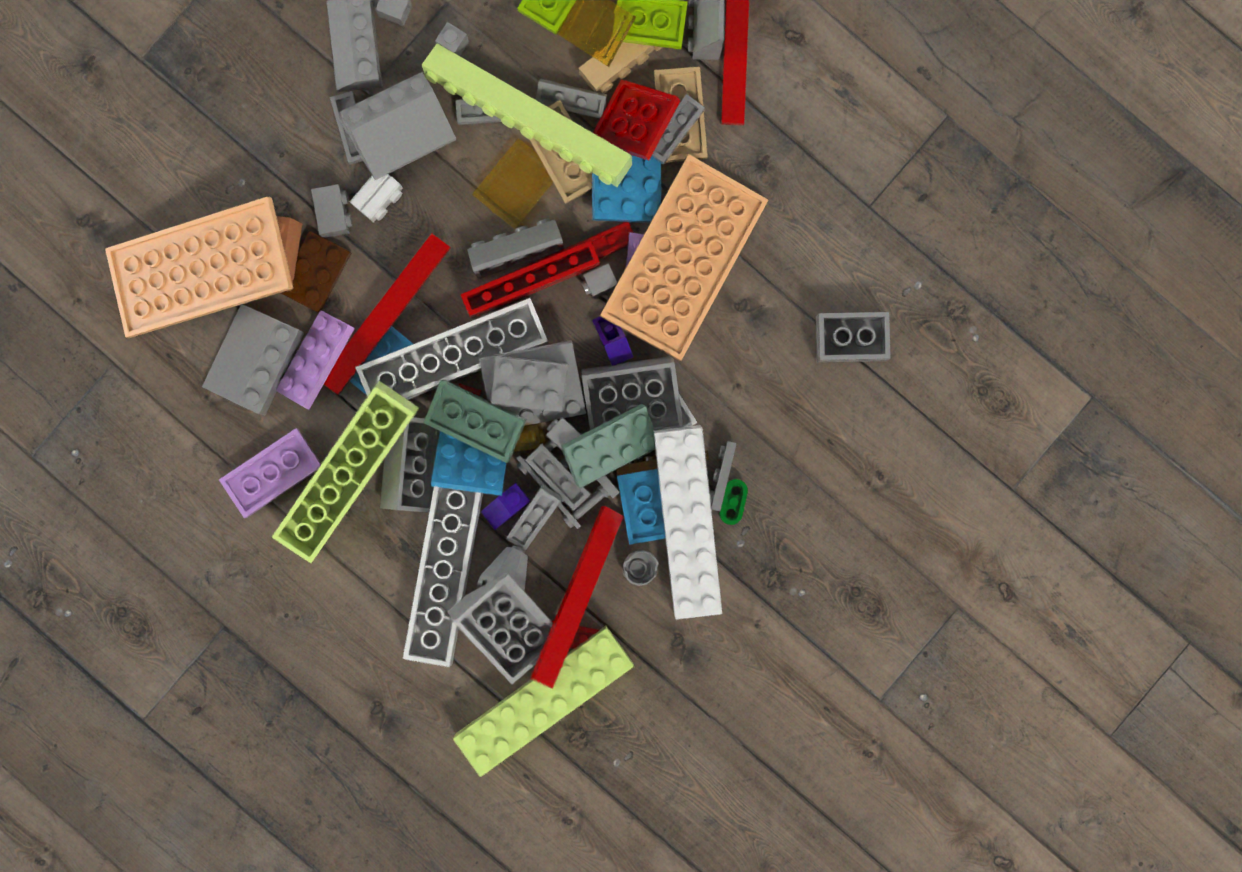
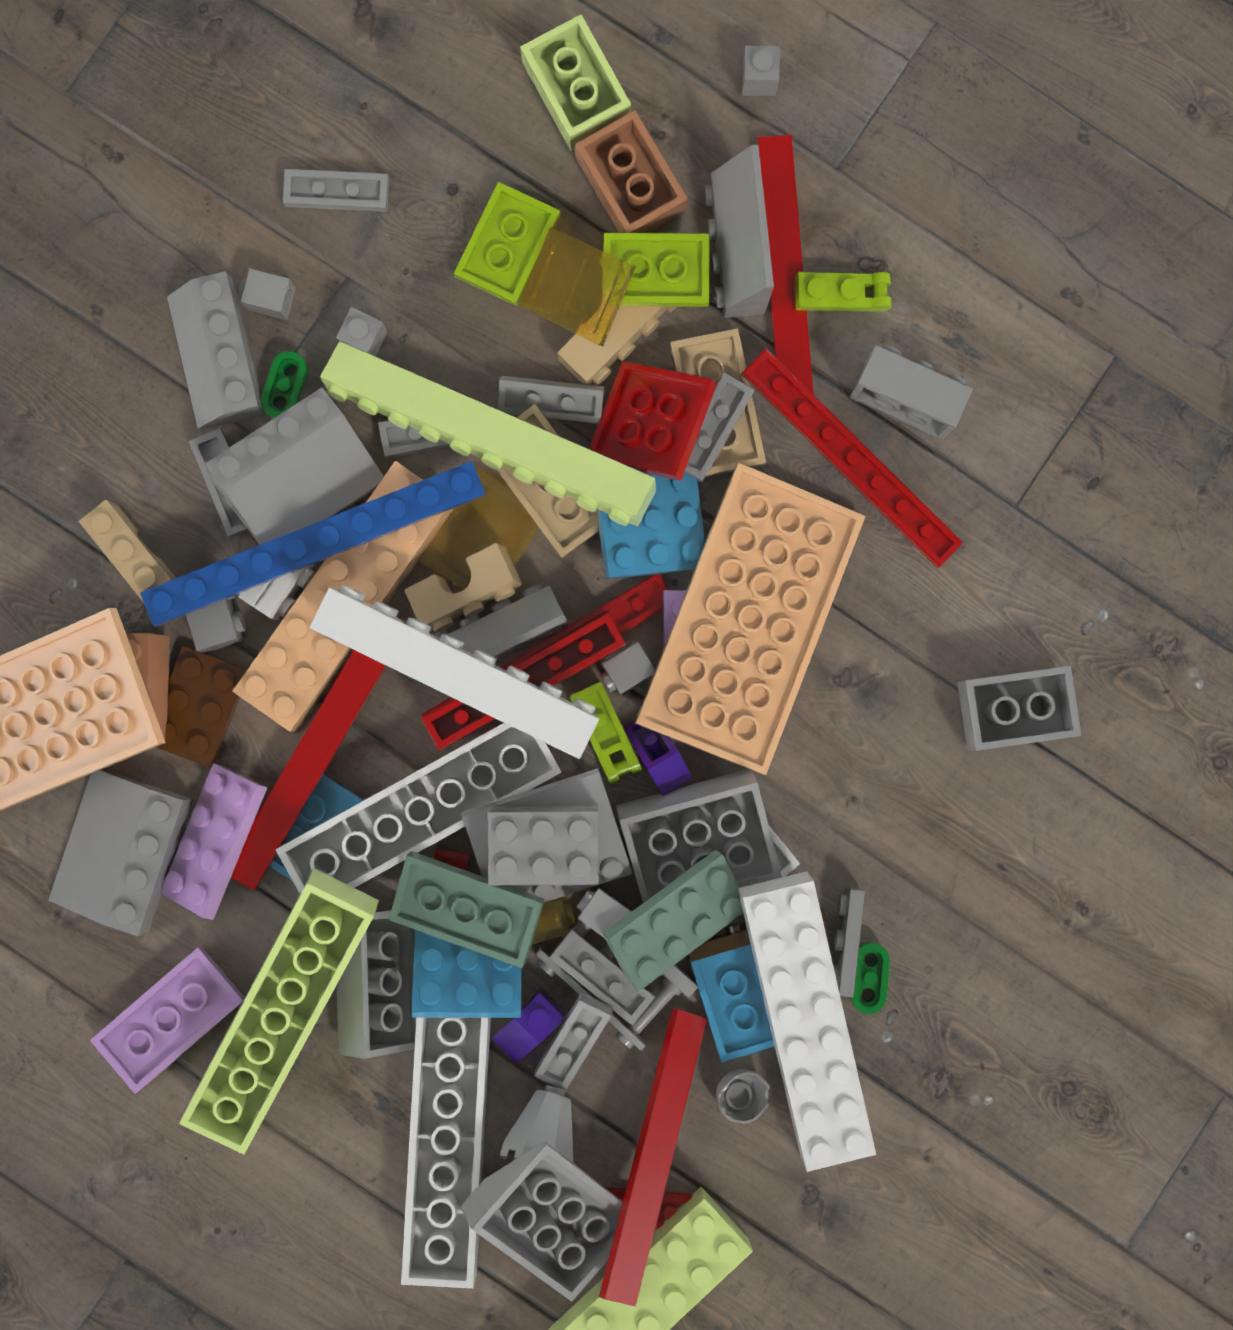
camera: 10 degrees left, 0 degrees up
(282, 165) = (124, 548): none -> tan arch
(396, 69) = (284, 387): none -> green plate
(404, 172) = (312, 544): none -> blue plate
(420, 211) = (302, 663): none -> light nougat brick
(482, 260) = (455, 672): none -> white brick
(517, 211) = (491, 578): none -> tan arch
(580, 320) = (608, 734): none -> lime plate
(764, 161) = (851, 458): none -> red tile
(771, 51) = (842, 291): none -> lime plate
(807, 121) = (911, 391): none -> light grey brick

